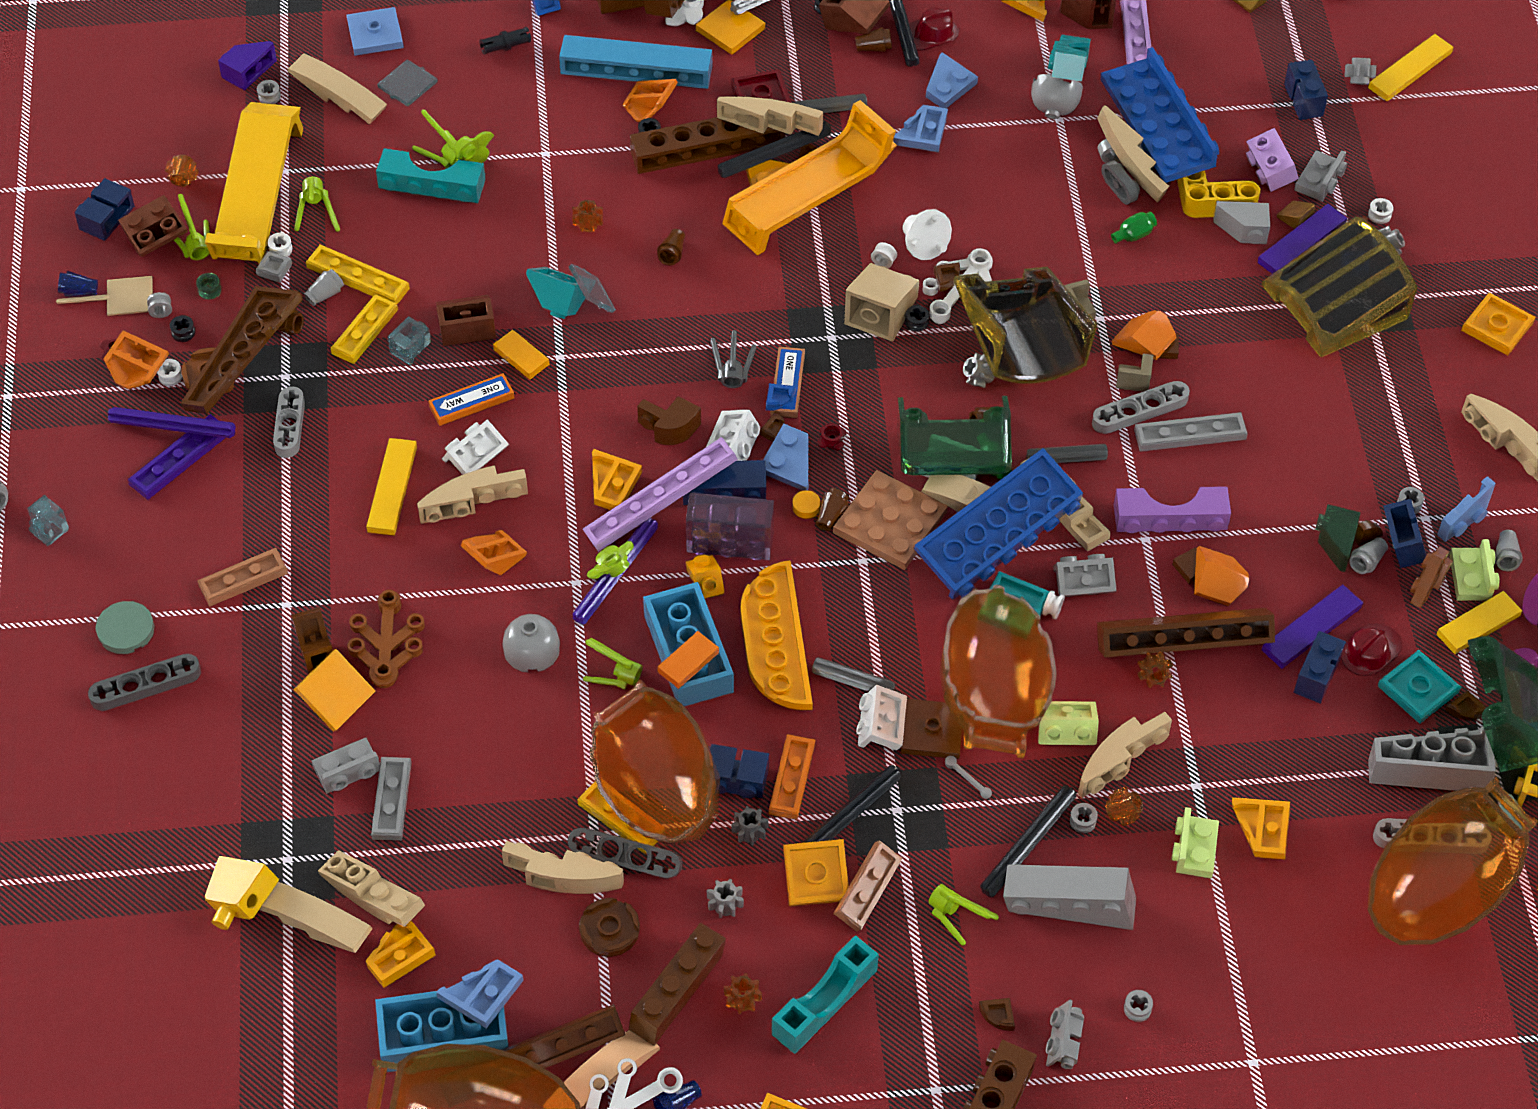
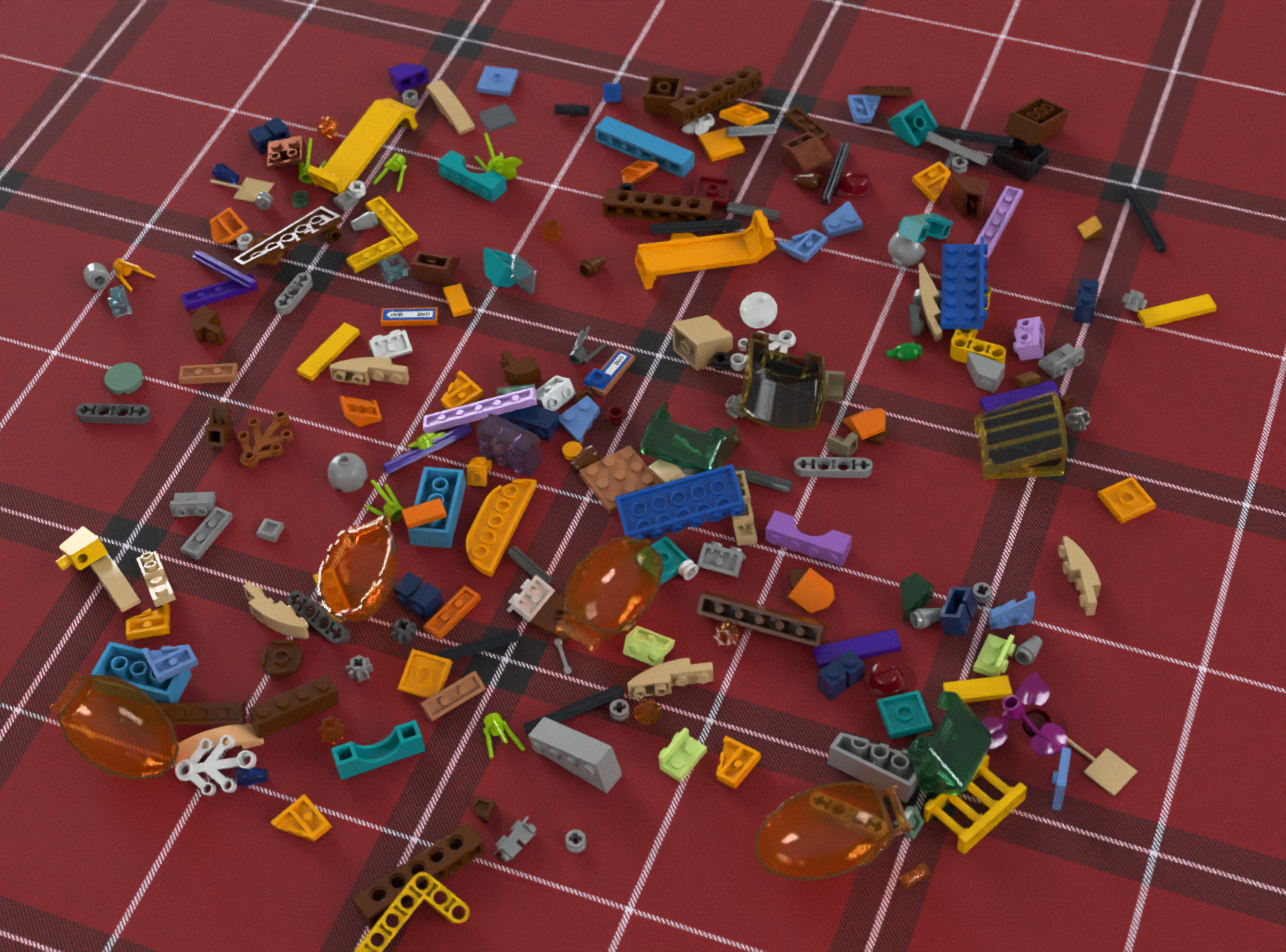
camera: 30 degrees right, 5 degrees down
(20, 469) = (125, 268): none -> light orange plant
(179, 323) = (269, 219): black bush -> none
(198, 514) = (207, 326): none -> reddish brown brick
(334, 690) = (212, 456): light orange tile -> none
(476, 760) = (270, 530): none -> light grey tile
(686, 448) = (510, 389): none -> sand green tile
(763, 113) = (697, 200): tan slope -> none
(884, 255) = (724, 314): white bush -> none
(1190, 431) = (857, 495): light grey tile -> none
(1367, 532) = (934, 600): reddish brown tile -> none
(1380, 217) = (1089, 392): white bush -> none
(1433, 574) = (957, 643): dark orange plate -> none

